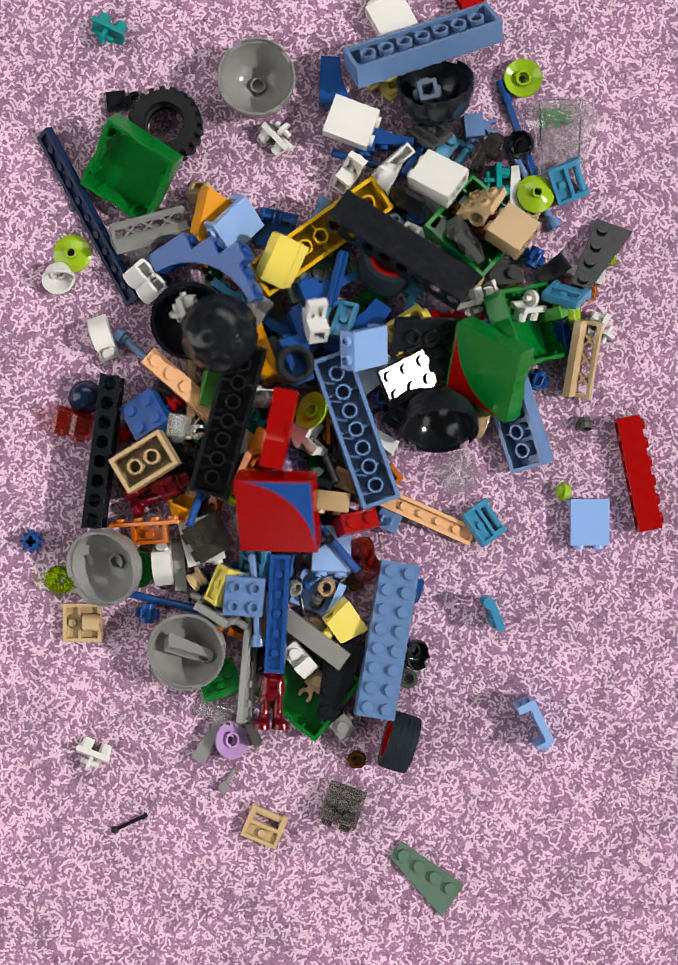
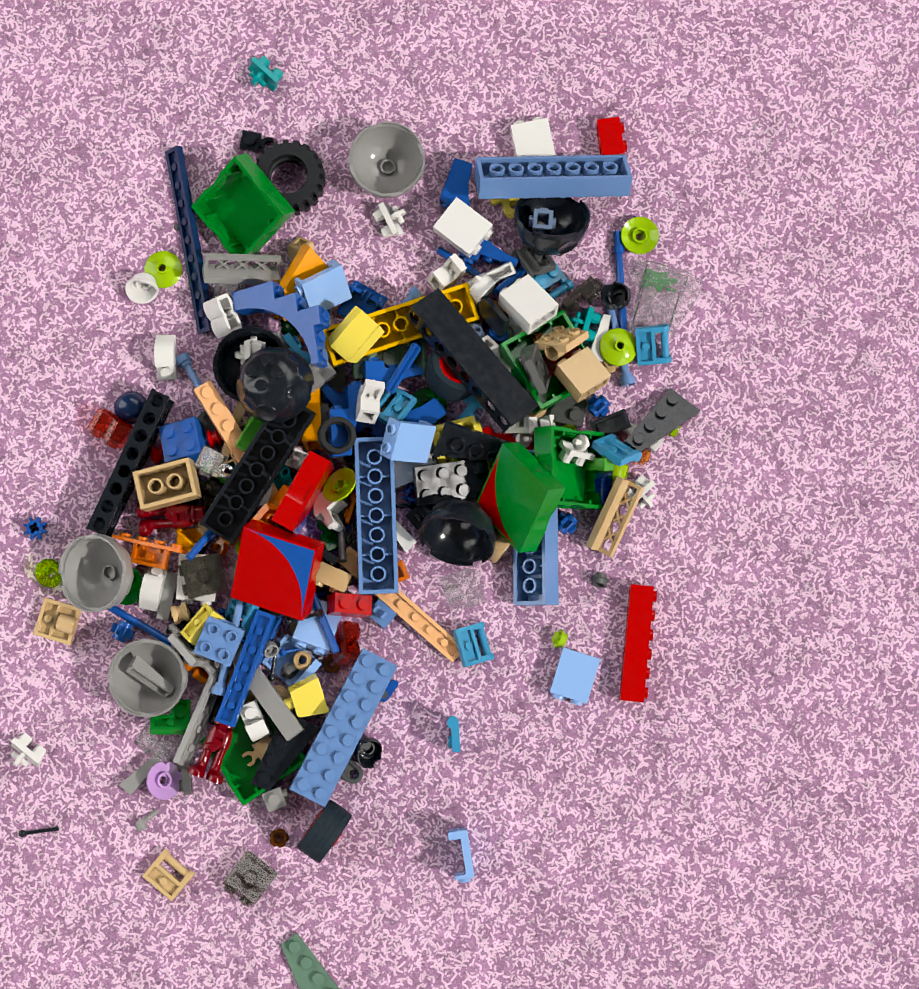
camera: 15 degrees right, 5 degrees down
(475, 127) = (580, 267): medium blue brick -> none

